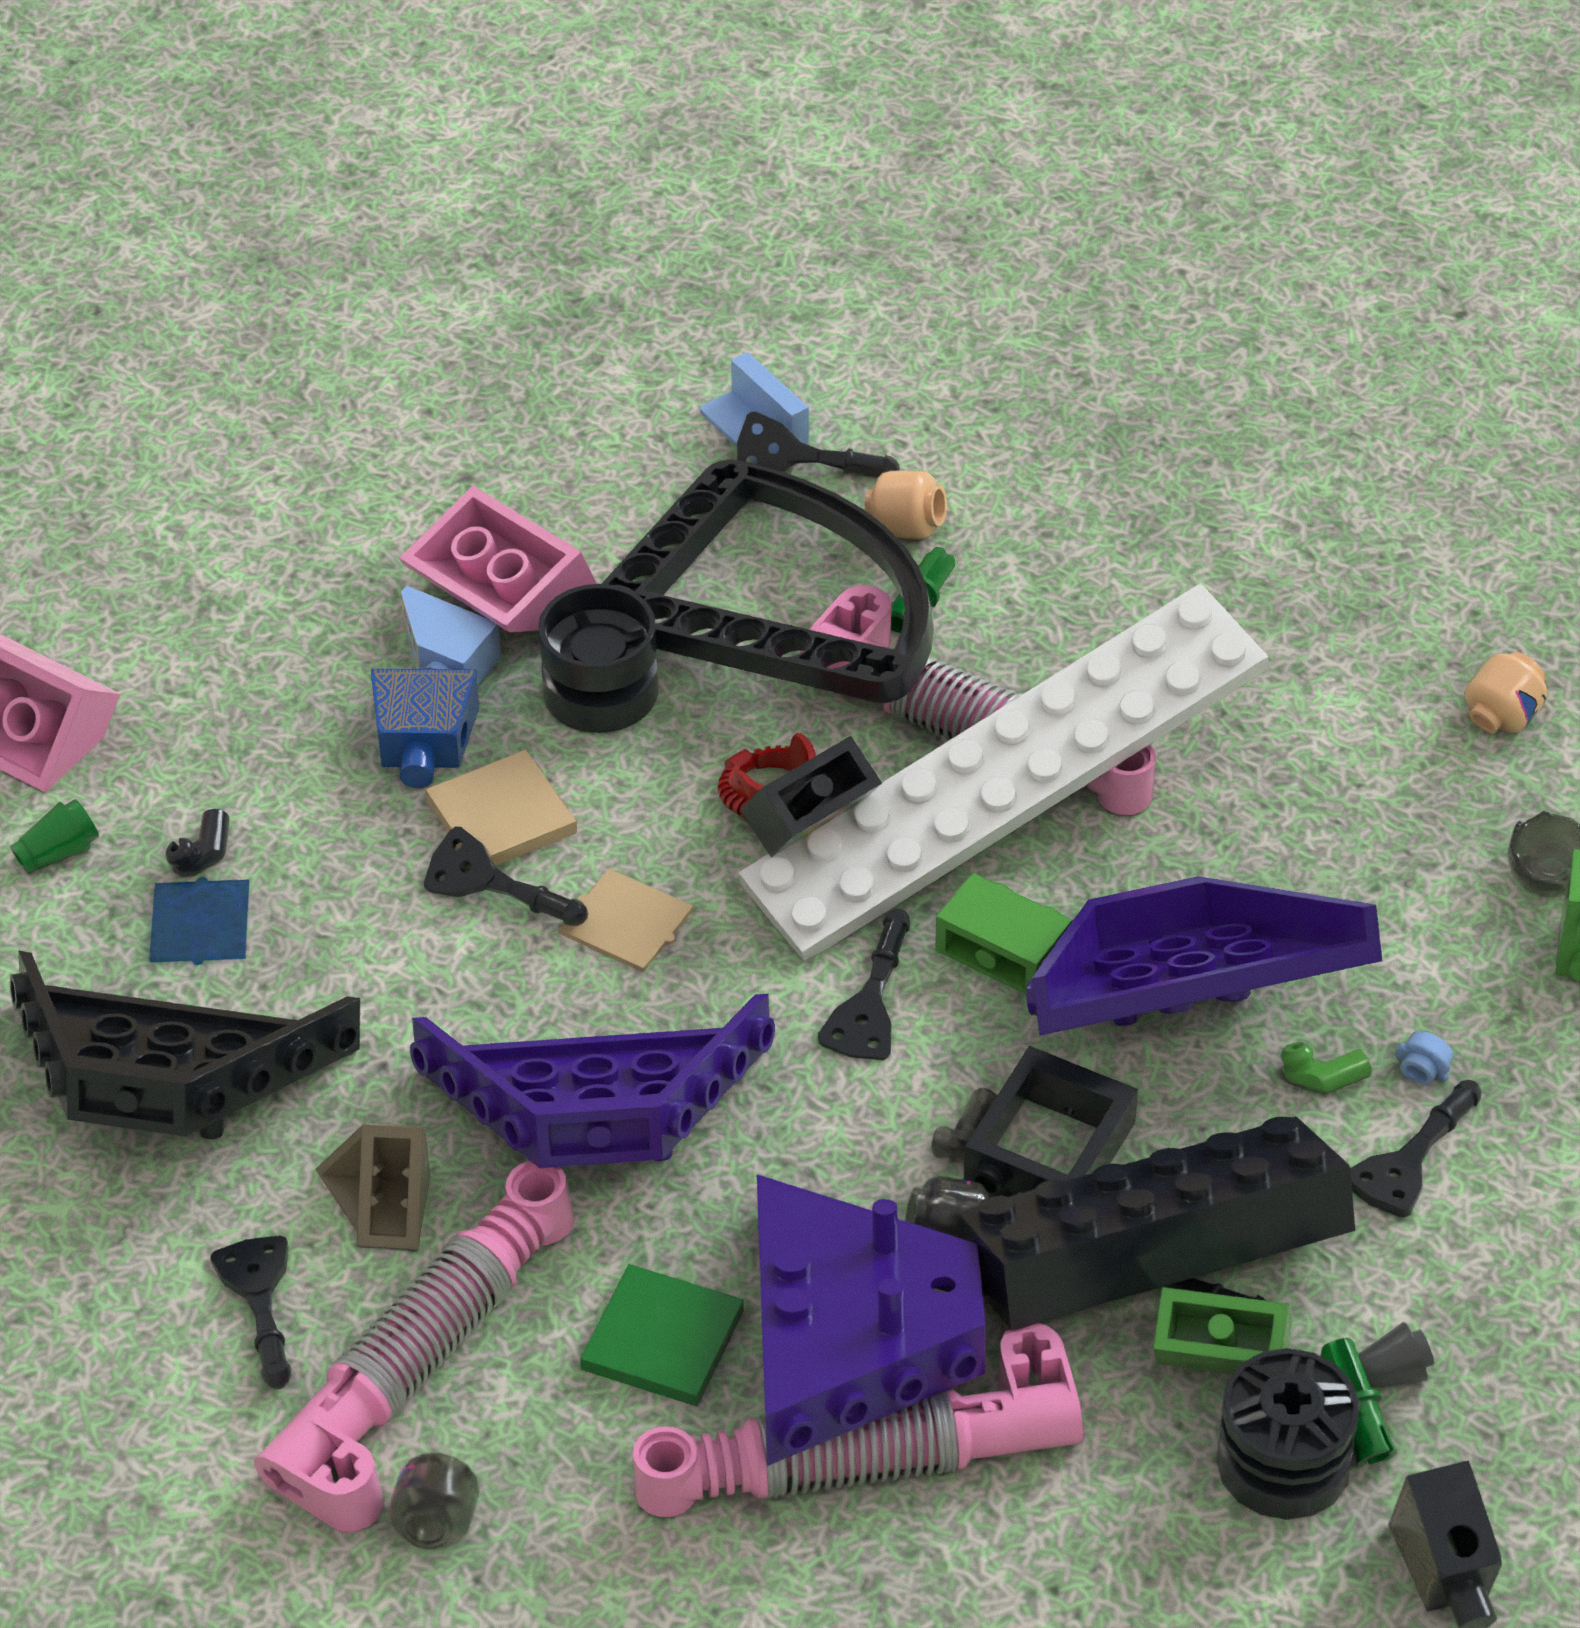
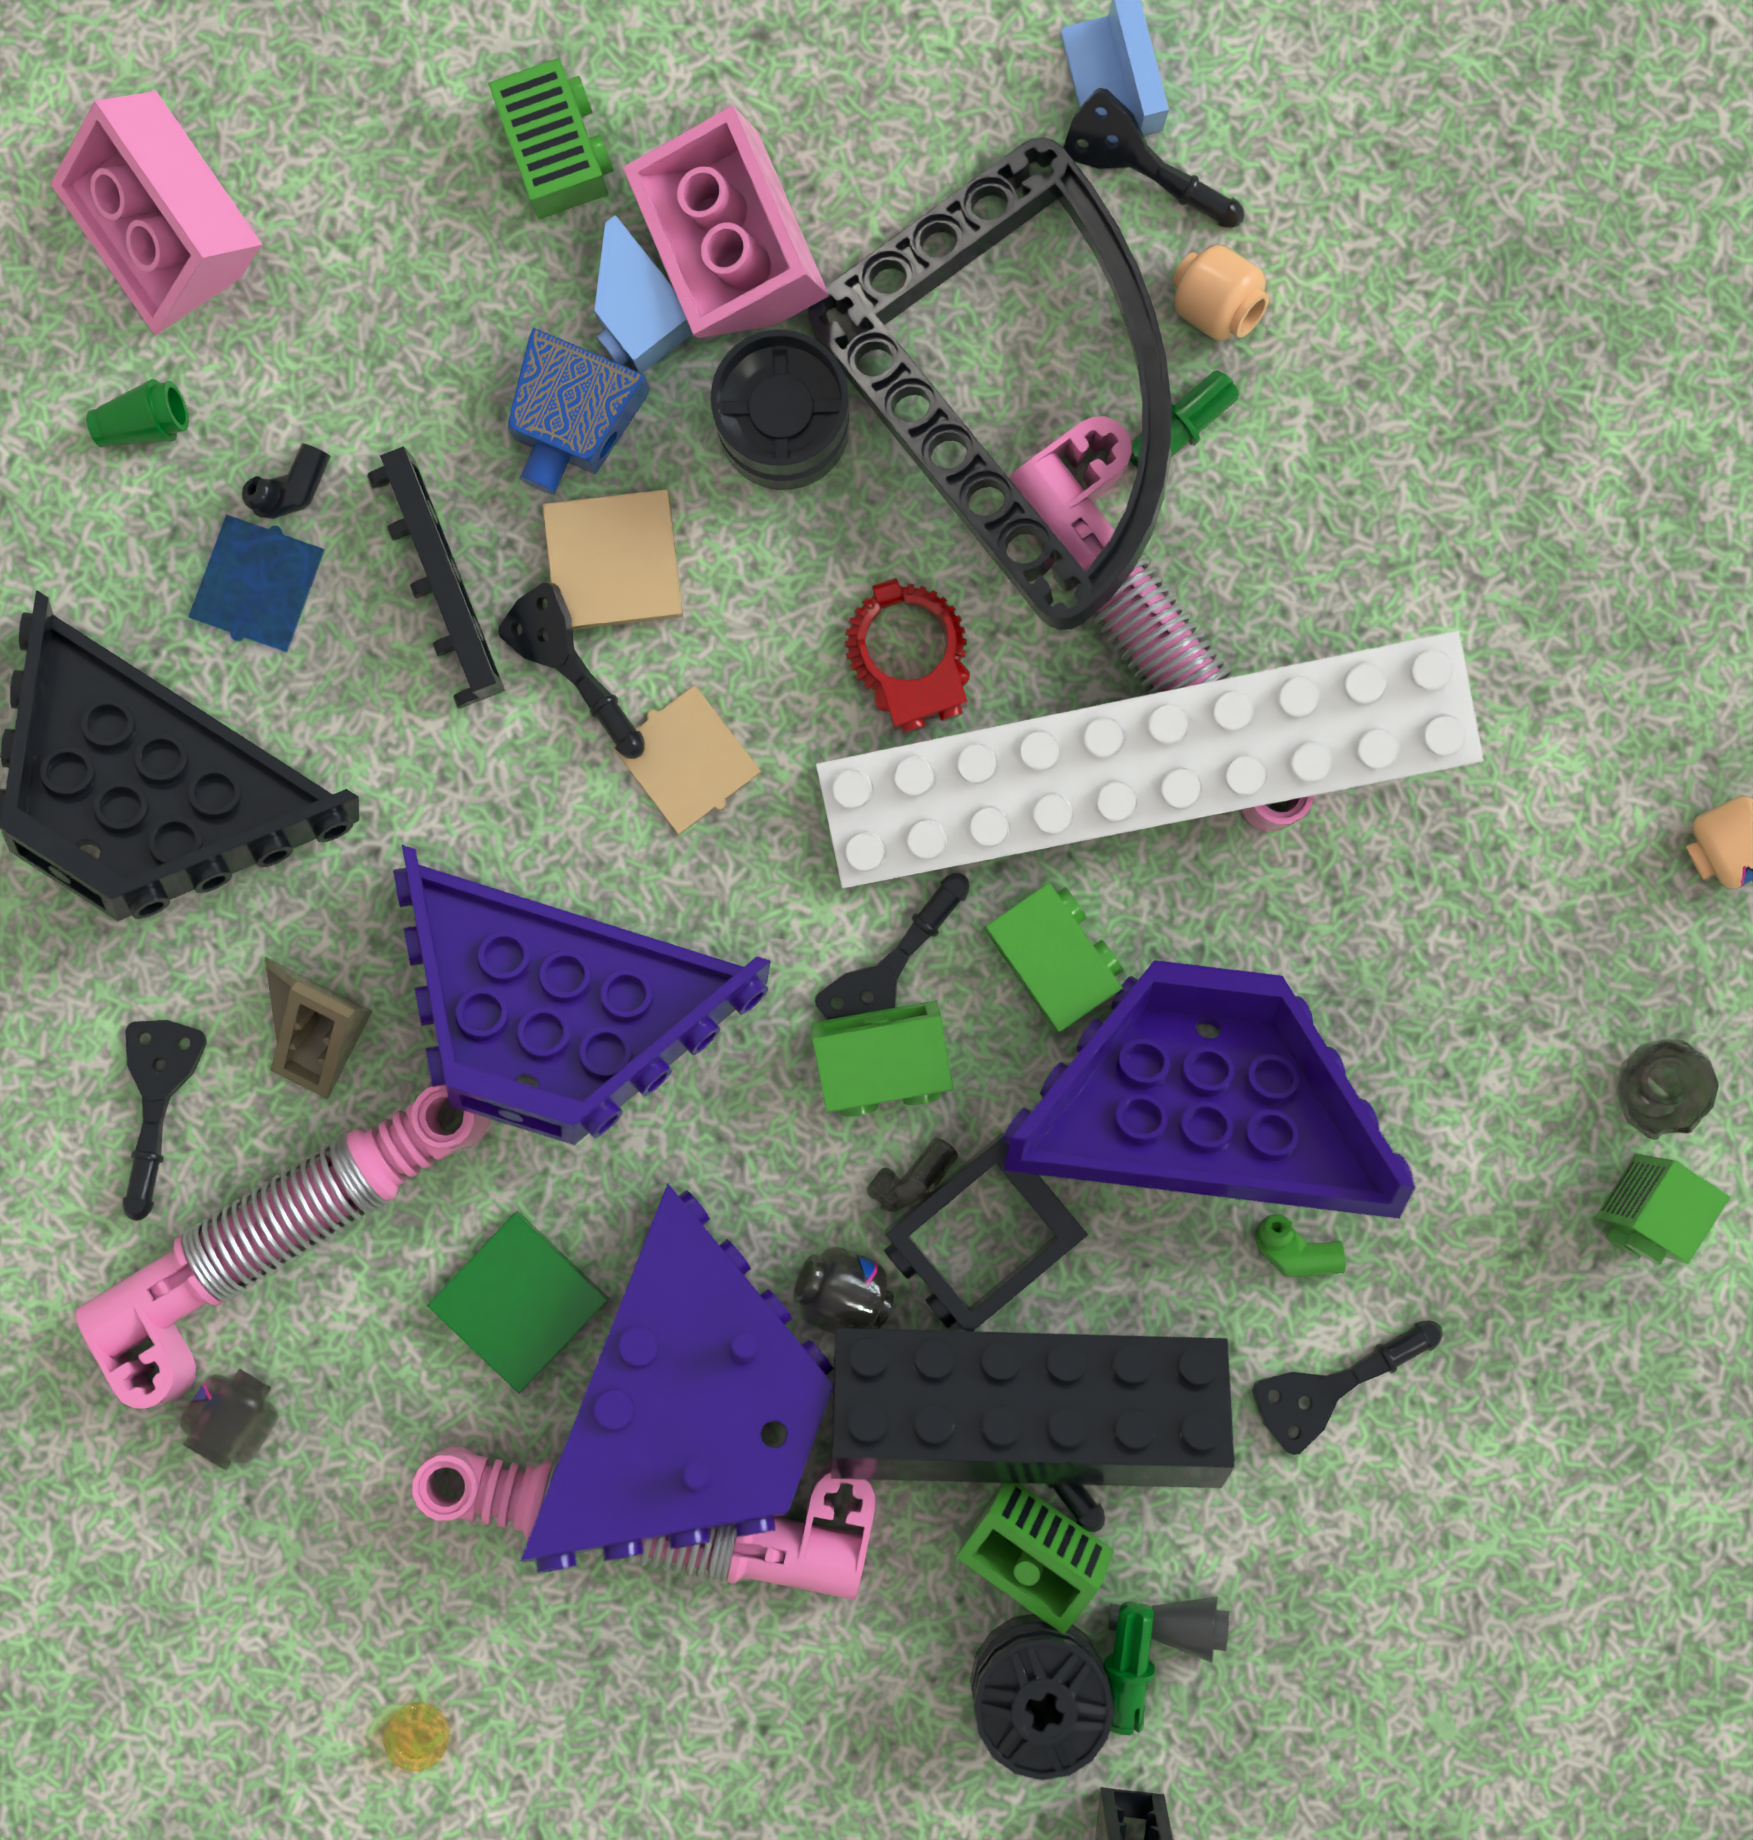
camera: 25 degrees right, 40 degrees up
(329, 571) = (549, 137): none -> bright green brick
(363, 855) = (442, 575): none -> black hinge
(810, 796) = (915, 731): black brick -> none
(896, 1042) = (882, 1058): none -> bright green brick
(1424, 1058) = (1402, 1284): light blue plate -> none

